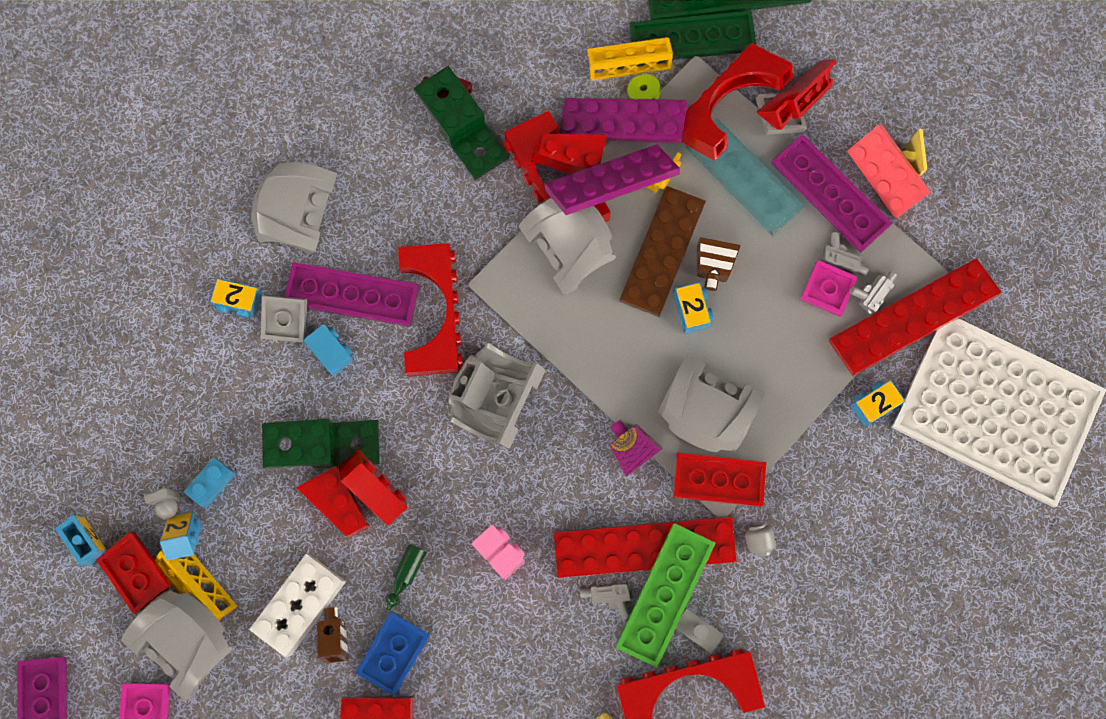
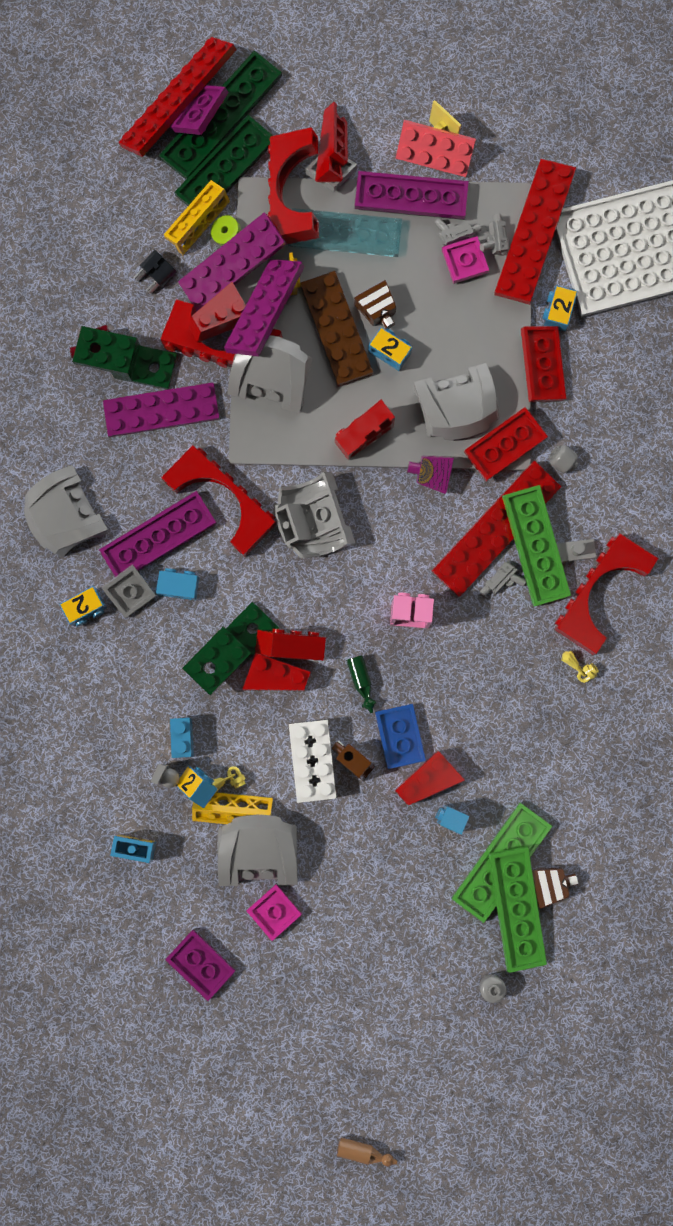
camera: 40 degrees left, 5 degrees up
(134, 572) = (186, 837): red plate -> none
(220, 564) = (237, 782): none -> light yellow piece
(453, 191) = (161, 409): none -> magenta plate
(557, 74) = (157, 269): none -> black piece
(605, 358) = (365, 429): none -> red wedge
(818, 438) = (543, 363): none -> red plate

